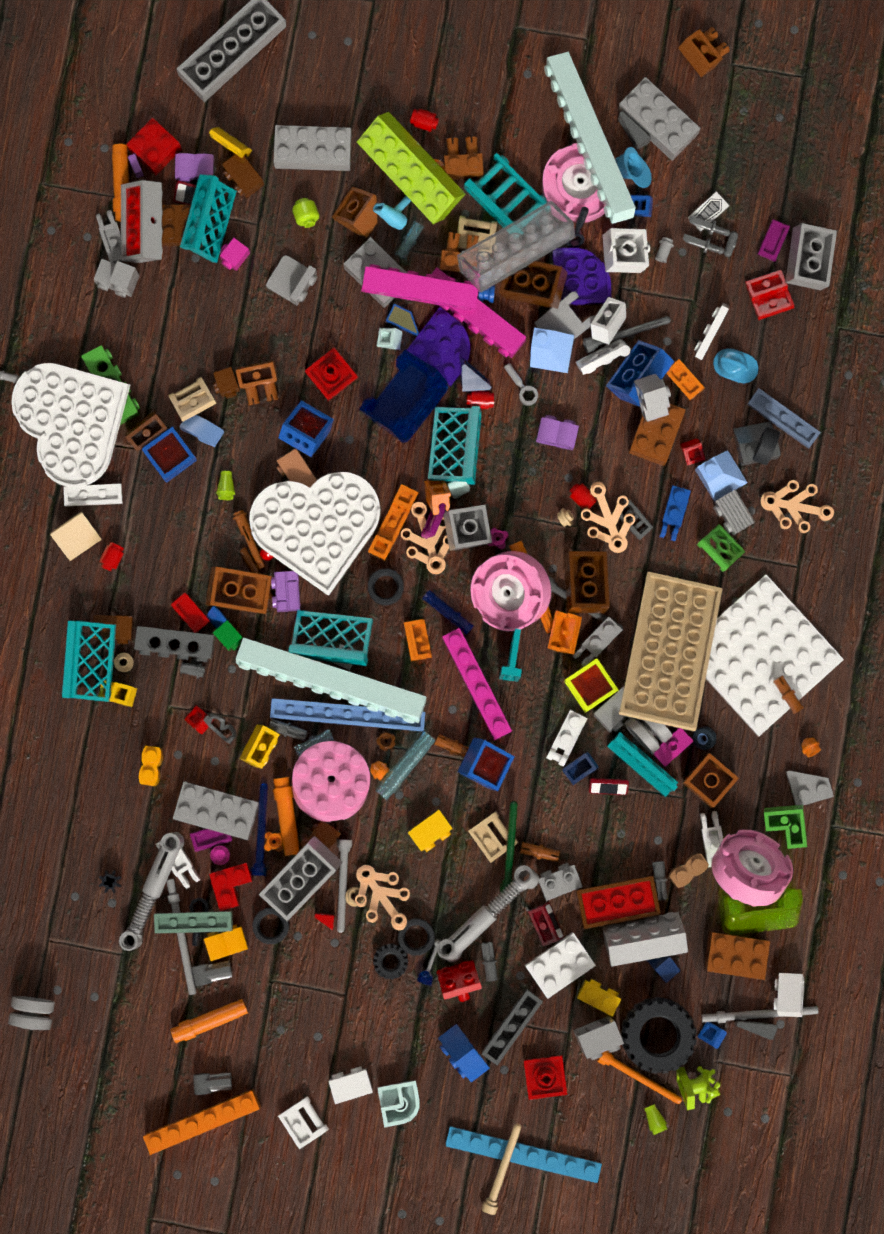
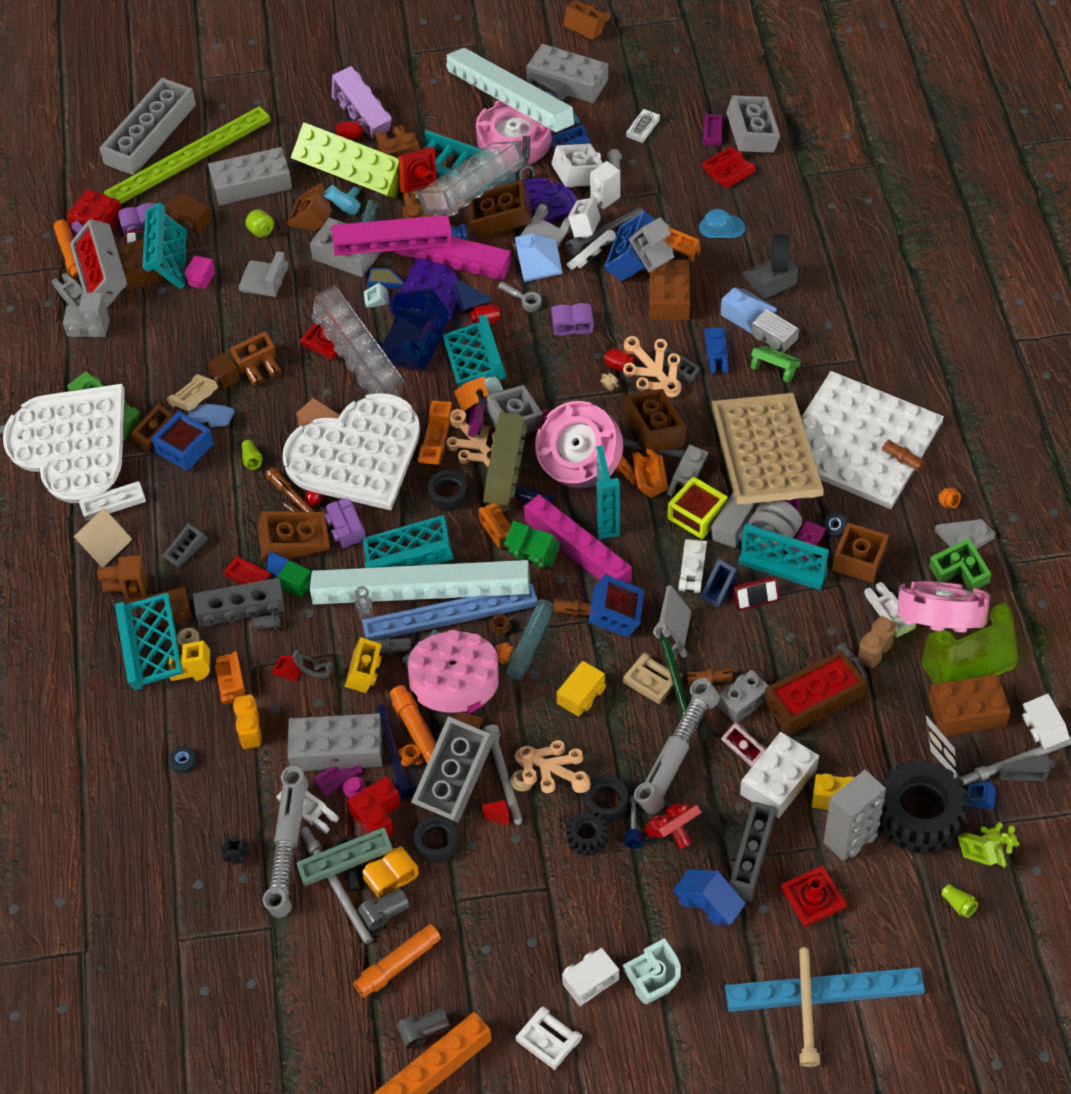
camera: 10 degrees left, 30 degrees down
(31, 1013) = (178, 1012): light grey wheel -> none
(84, 776) = (185, 766): none -> black wheel
(88, 590) = (126, 577): none -> dark orange brick
(111, 556) = (147, 545): red brick -> none
(148, 716) = (229, 677): none -> orange hinge
(154, 565) = (185, 534): none -> dark grey slope
(230, 142) = (166, 188): yellow slope -> none
(261, 97) = (188, 155): none -> lime plate
(272, 686) = (363, 603): none -> clear pin
(306, 428) = (317, 379): blue piece -> none
(350, 417) = (355, 344): none -> clear brick
(436, 678) = (532, 545): none -> green brick
(440, 584) = (505, 459): none -> olive brick
(445, 91) = (360, 102): none -> lavender wedge
(471, 210) = (417, 169): none -> red plate
(489, 961) = (699, 798): dark grey axle -> none
(528, 796) = (674, 621): none -> light grey flag
(609, 1059) = (875, 854): orange piece -> none
(641, 286) = (605, 184): none -> white brick
(645, 939) = (860, 713): light grey brick -> none
(664, 967) = (890, 740): dark blue slope -> none
(692, 451) = (711, 300): red slope -> none
(694, 997) = (942, 748): none -> sticker
(706, 245) = (674, 140): dark grey piece -> none
(711, 330) = (686, 199): white wing -> none
(783, 418) = (799, 251): sand blue plate -> none
(794, 506) = (810, 313): light nougat plant -> none

